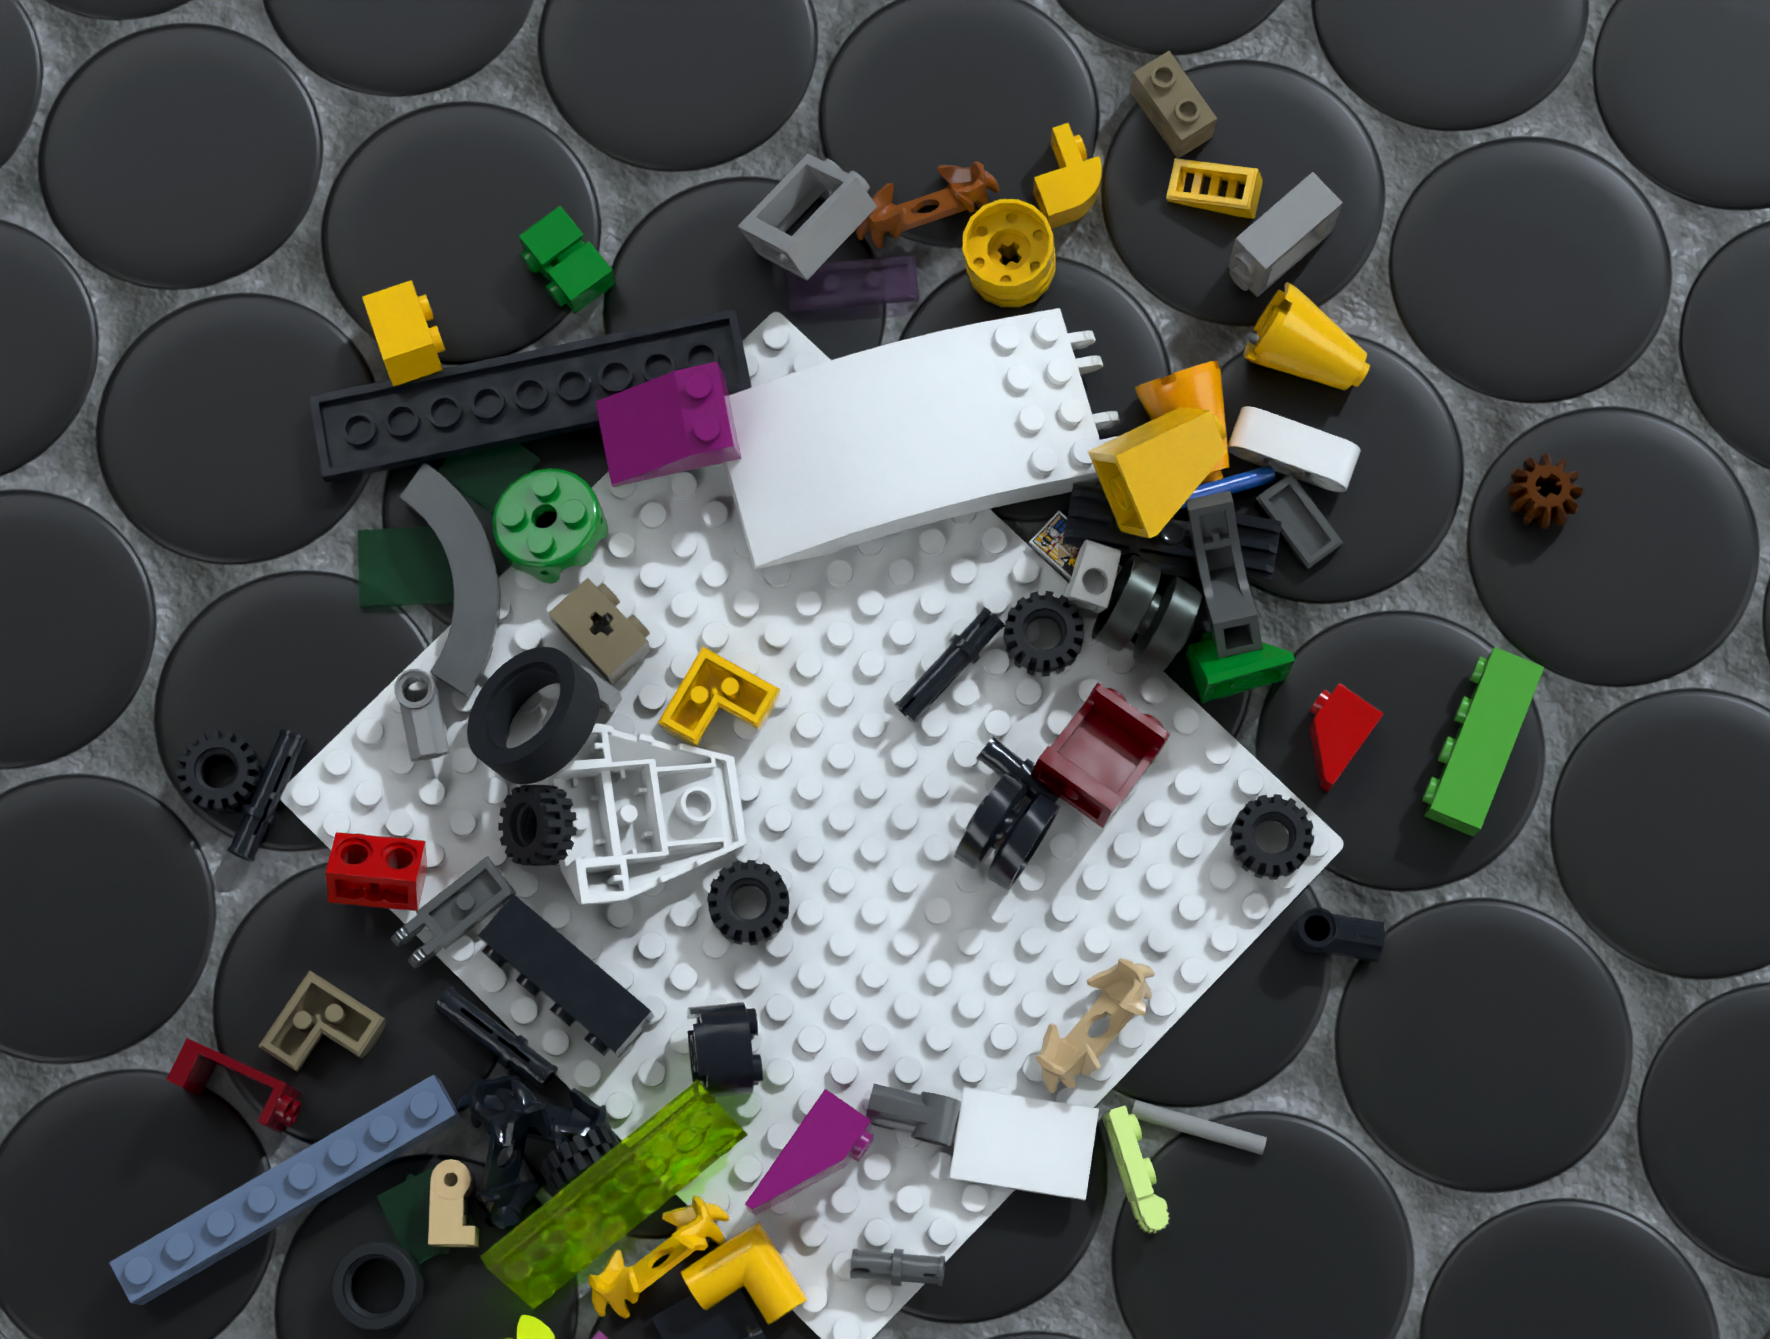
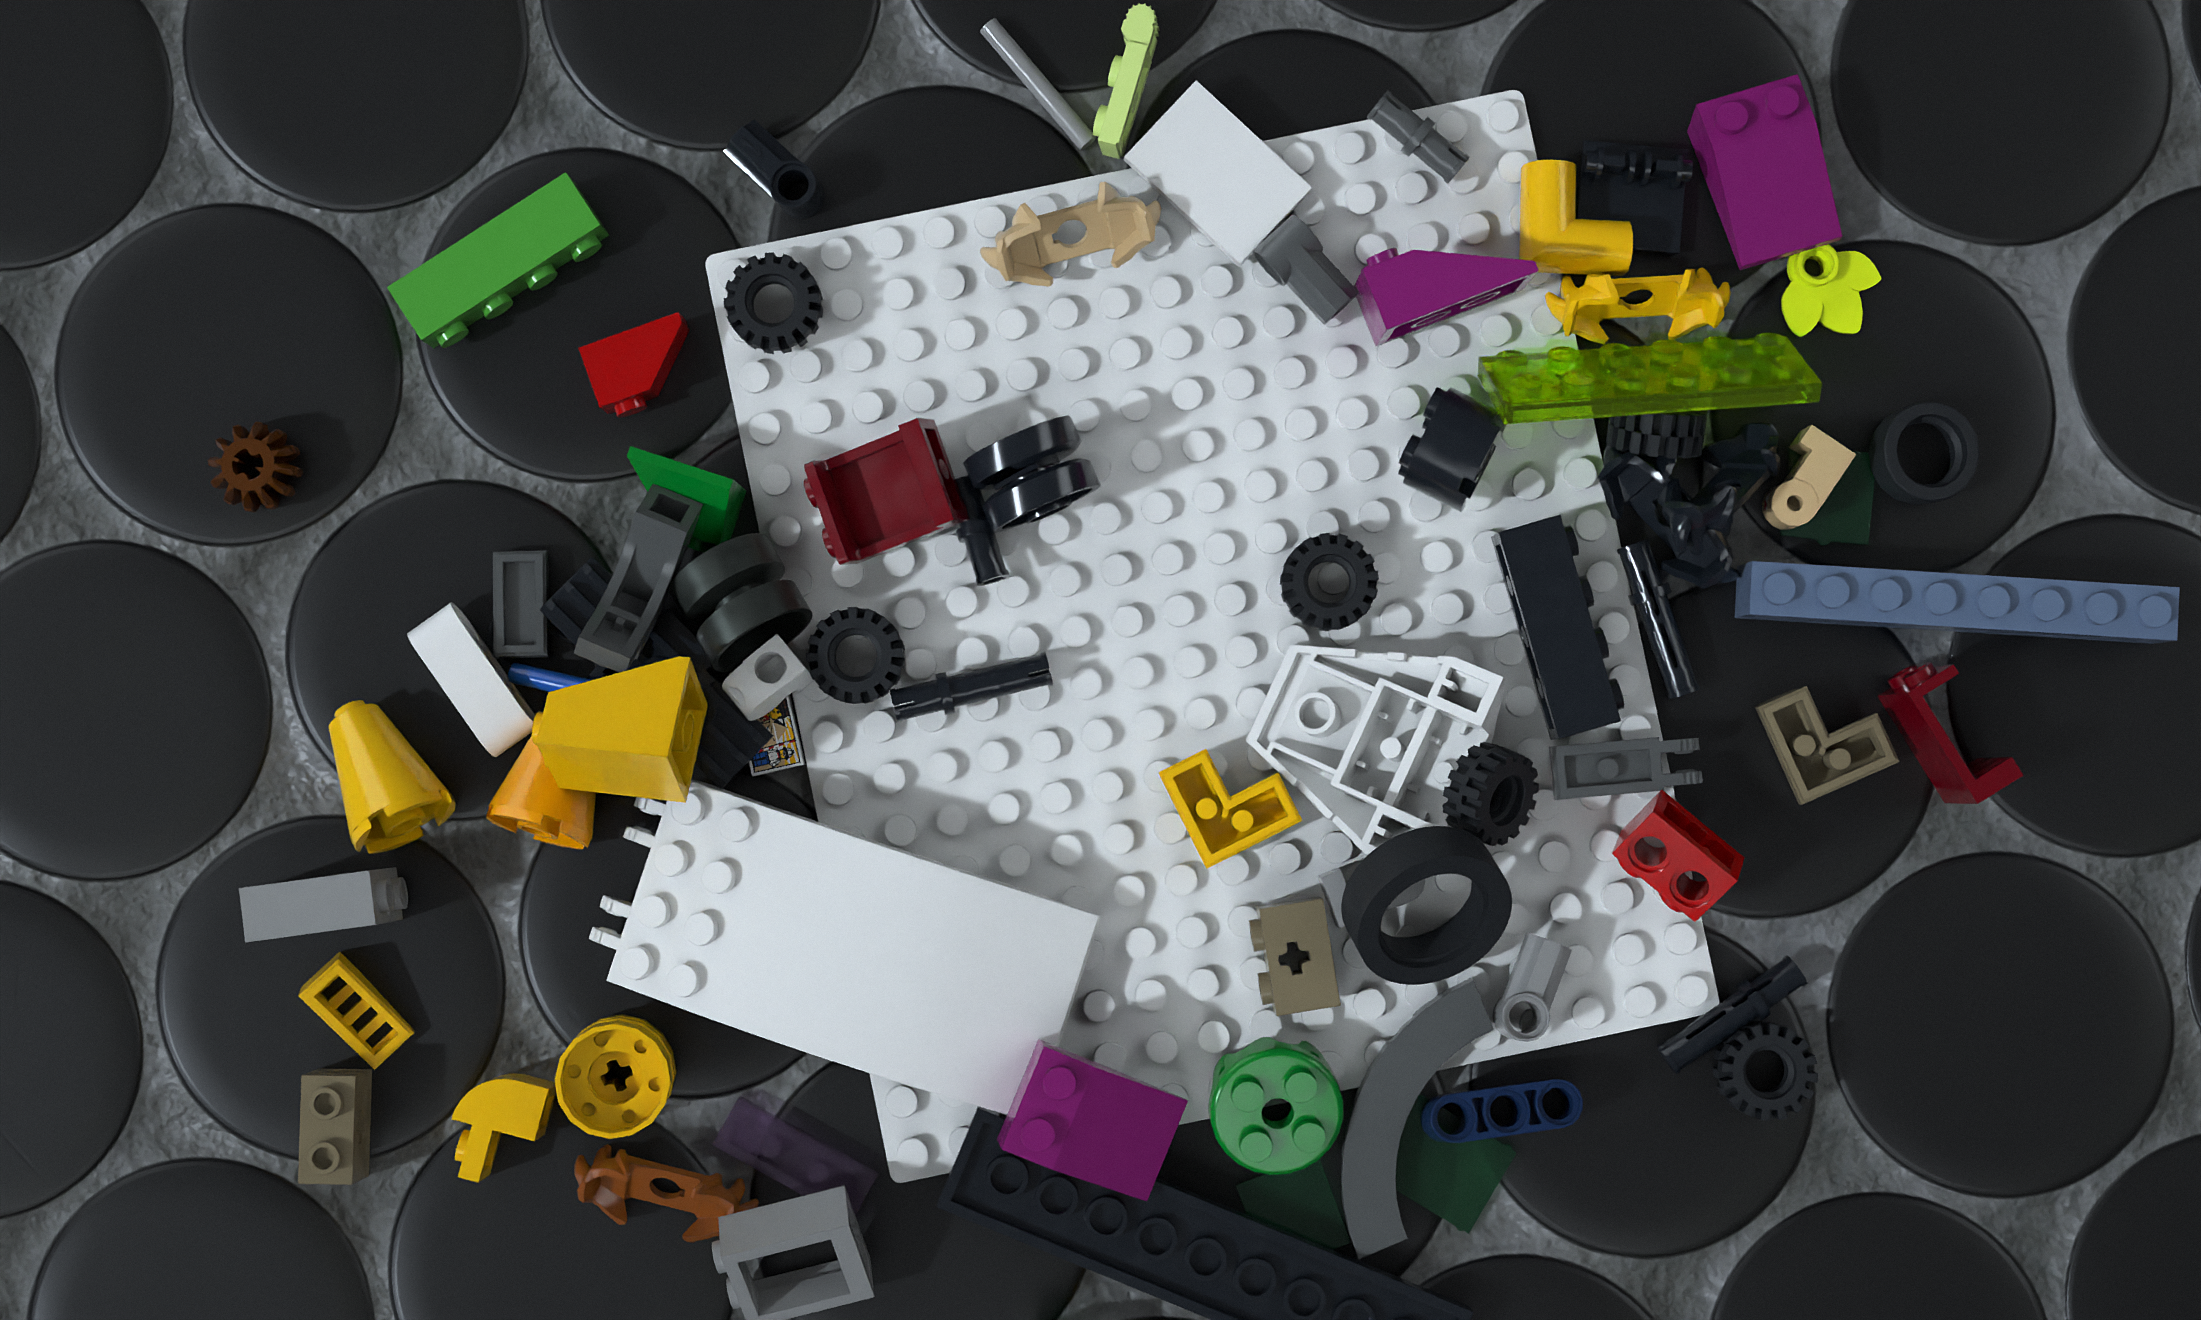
camera: 150 degrees left, 10 degrees up
(367, 625) = (1526, 1111): none -> dark blue beam

